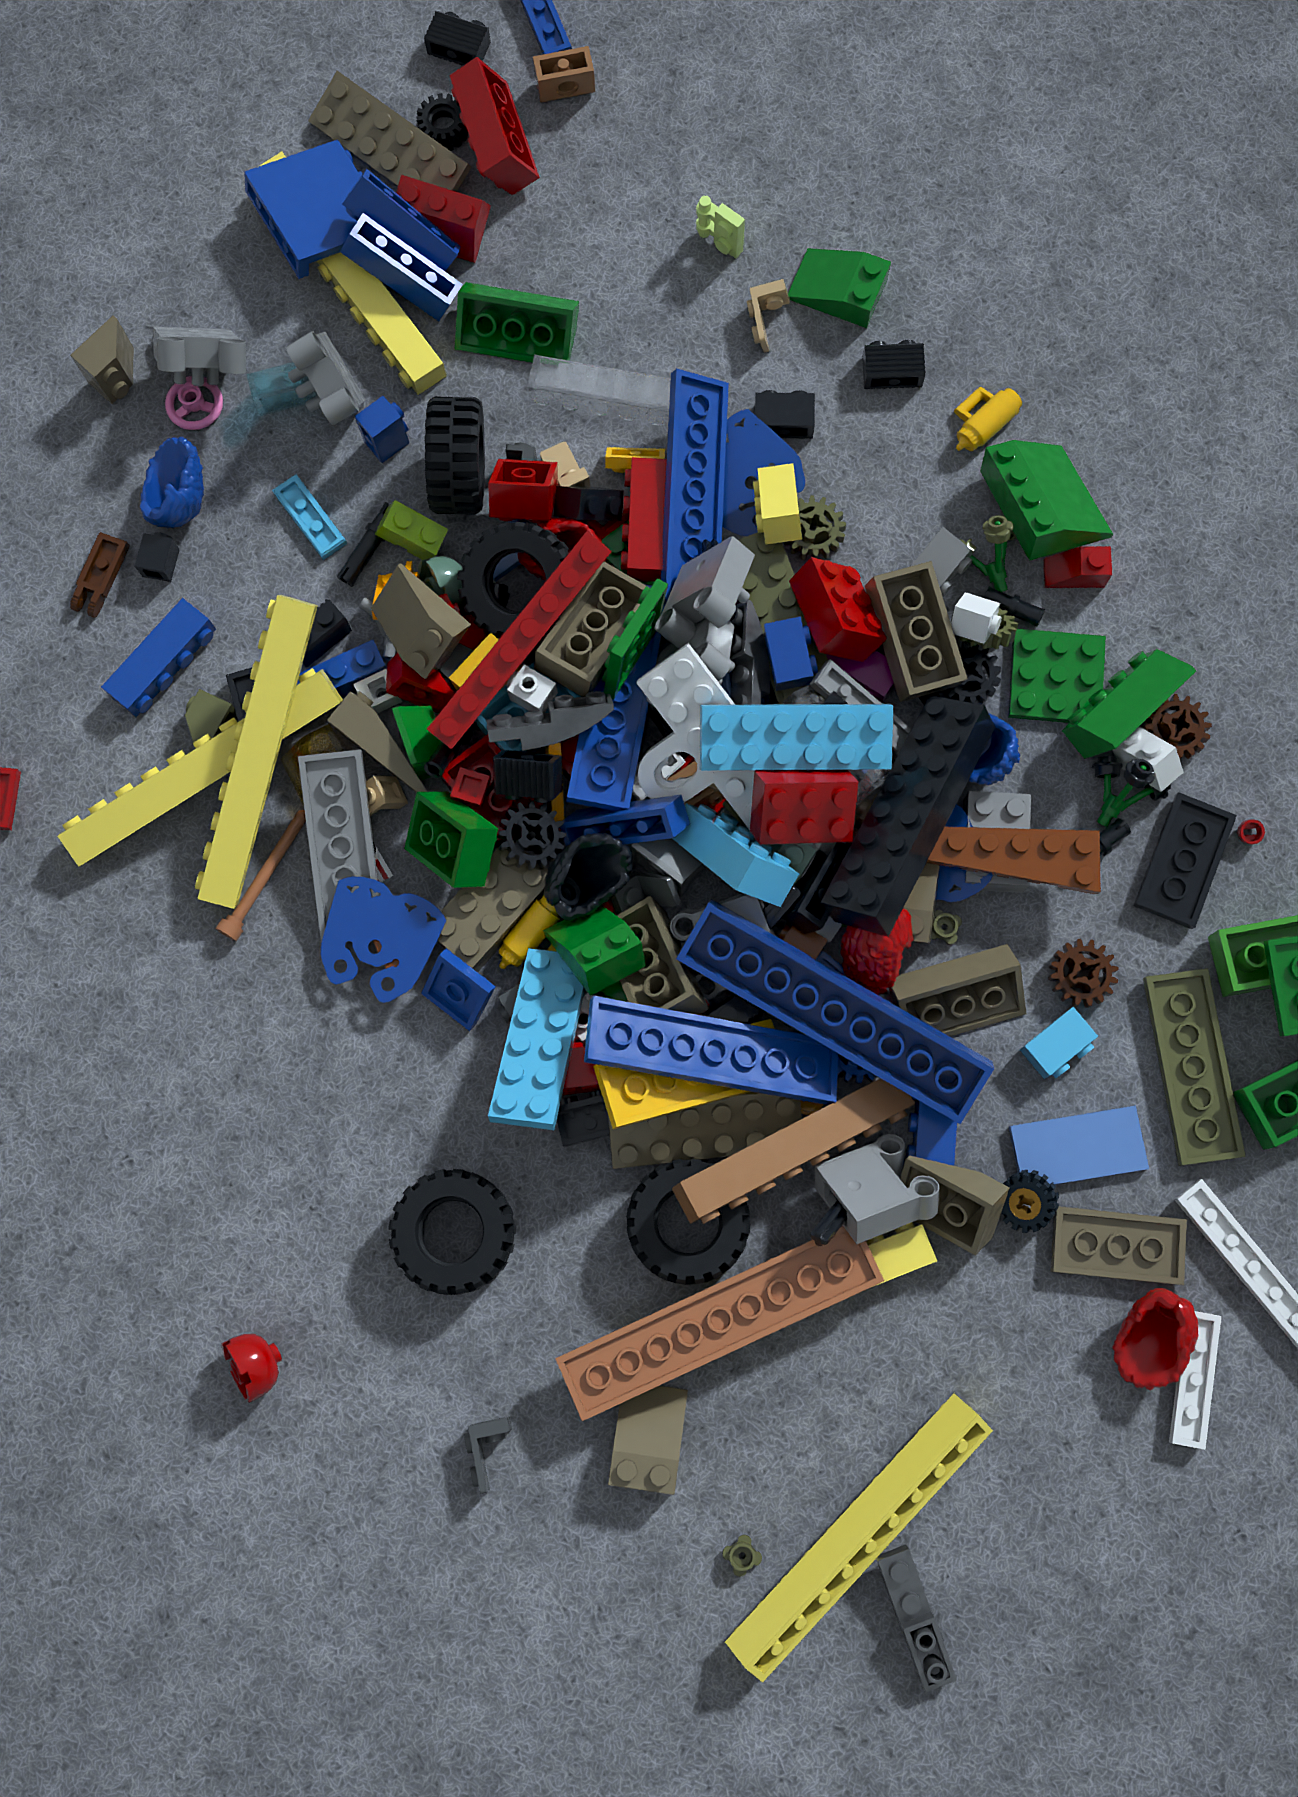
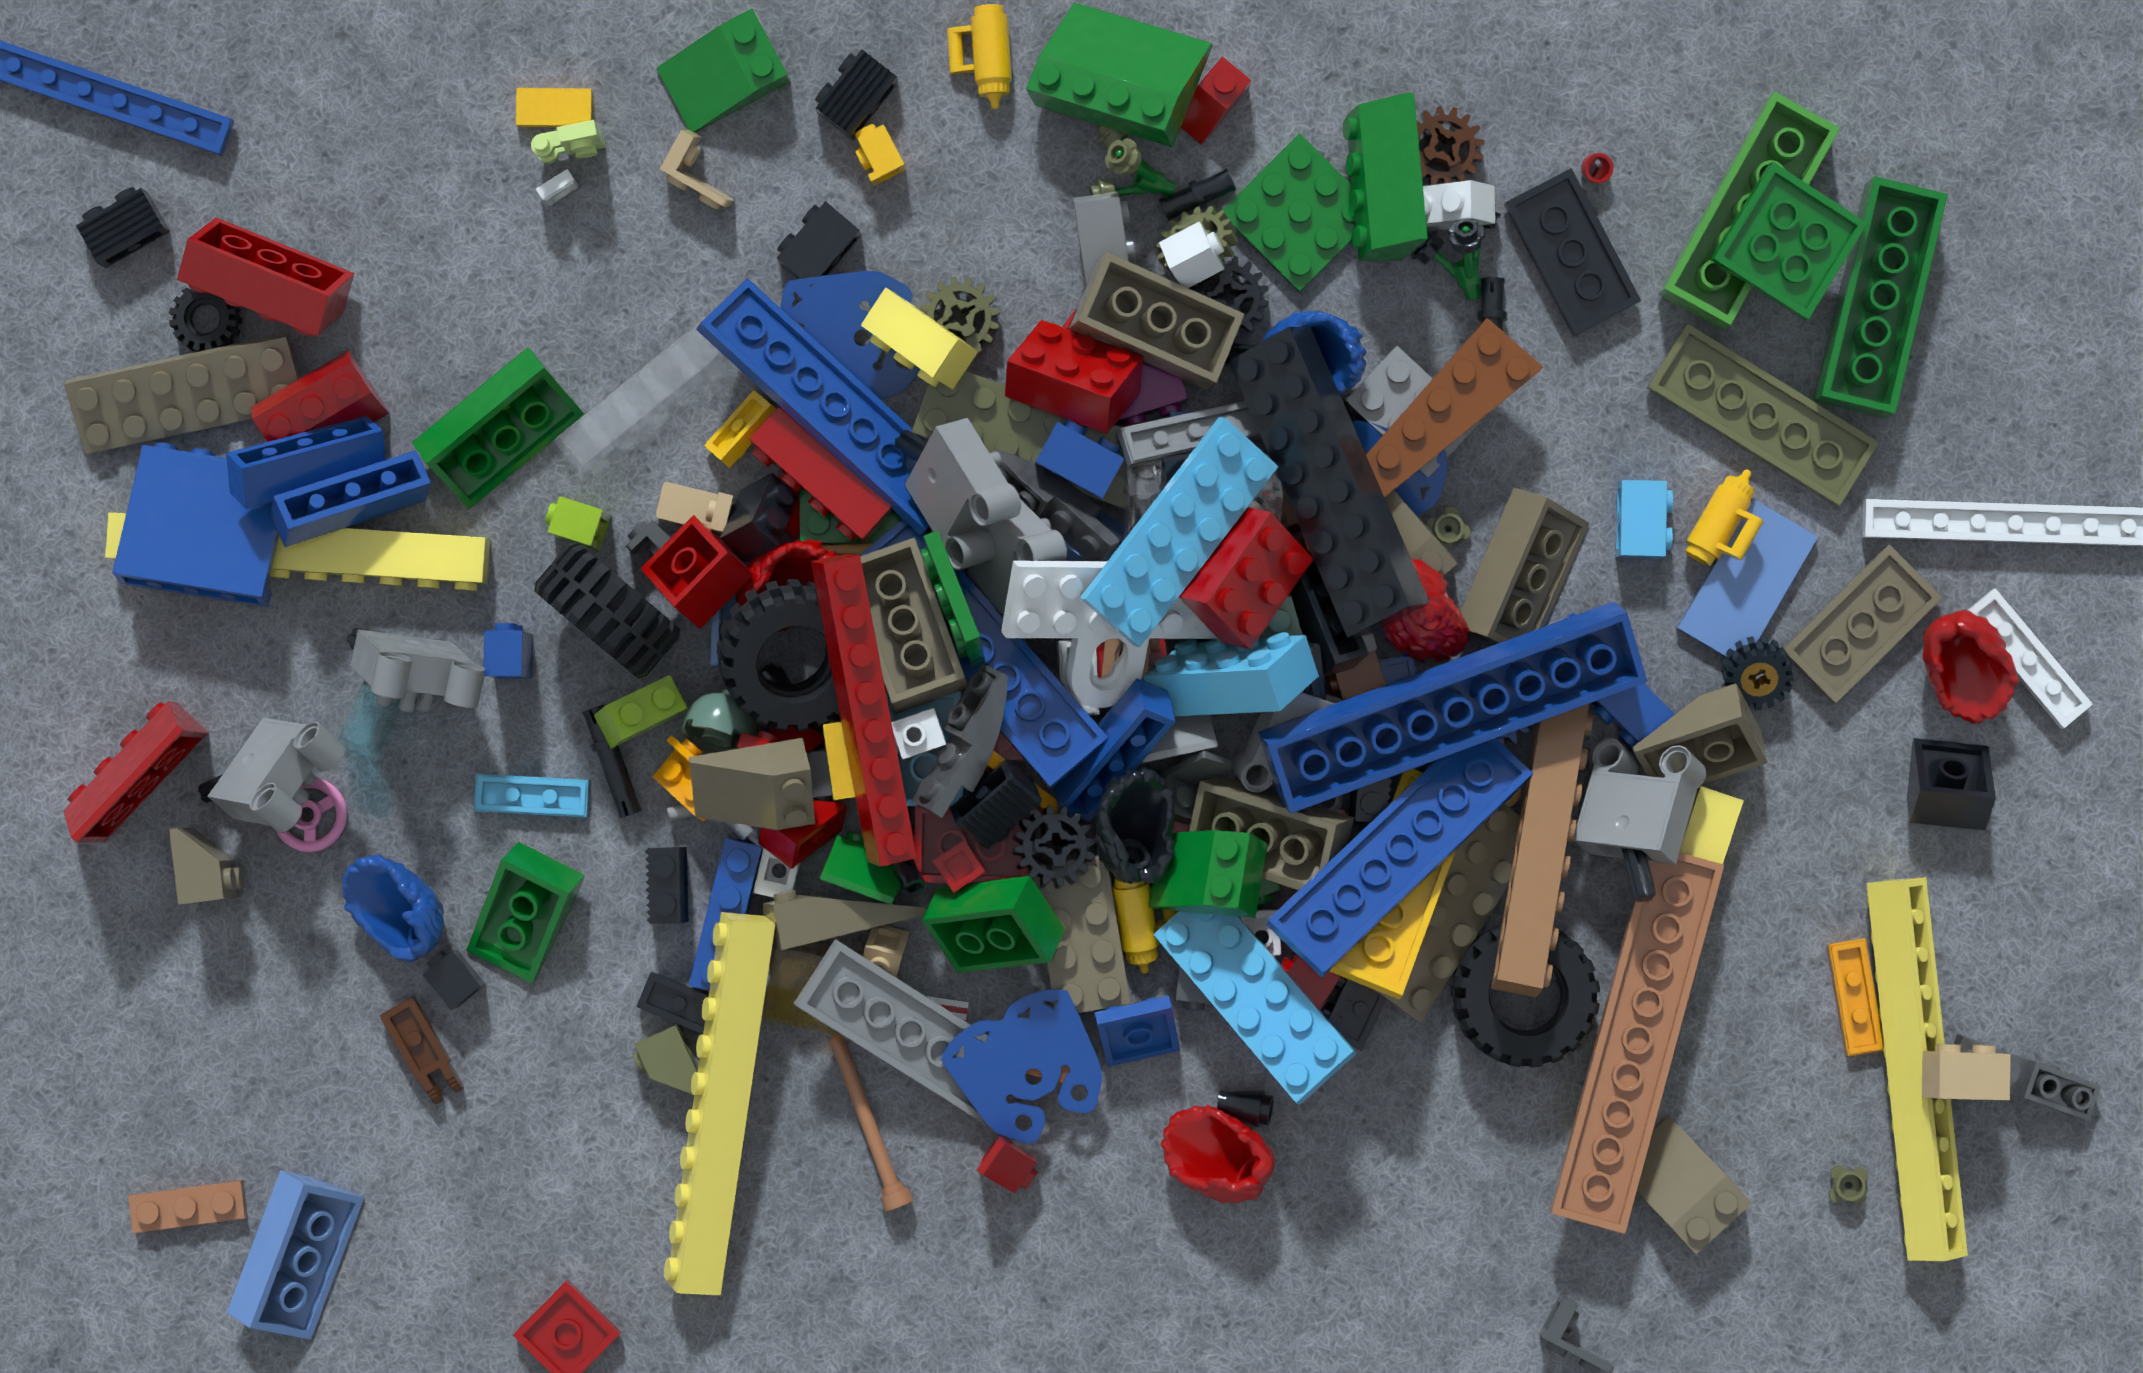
camera: 55 degrees left, 10 degrees up
(134, 283) = (133, 773): none -> red slope
(159, 658) = (564, 1057): blue brick -> none
(233, 564) = (524, 911): none -> green slope
(257, 750) = (759, 1039): light yellow brick -> none
(304, 977) = (1008, 1165): none -> red slope
(409, 1221) = (1396, 1251): black tyre -> none
(417, 1105) = (1216, 1155): none -> red hair
(468, 1105) = (1247, 1106): none -> black cone
(498, 407) = (577, 523): none -> lime brick
(564, 74) = (260, 154): medium nougat brick -> none
(688, 246) = (557, 187): none -> white tile
(728, 196) = (553, 106): none -> yellow tile
(869, 406) = (878, 154): none -> yellow brick
(872, 1452) = (1855, 997): none -> light orange tile
(884, 1571) = (1966, 1074): none -> tan brick
(1067, 1396) = (1950, 784): none -> black slope
(1089, 983) = (1614, 442): reddish brown gear -> none
(1104, 1095) = (1721, 520): none -> yellow piece

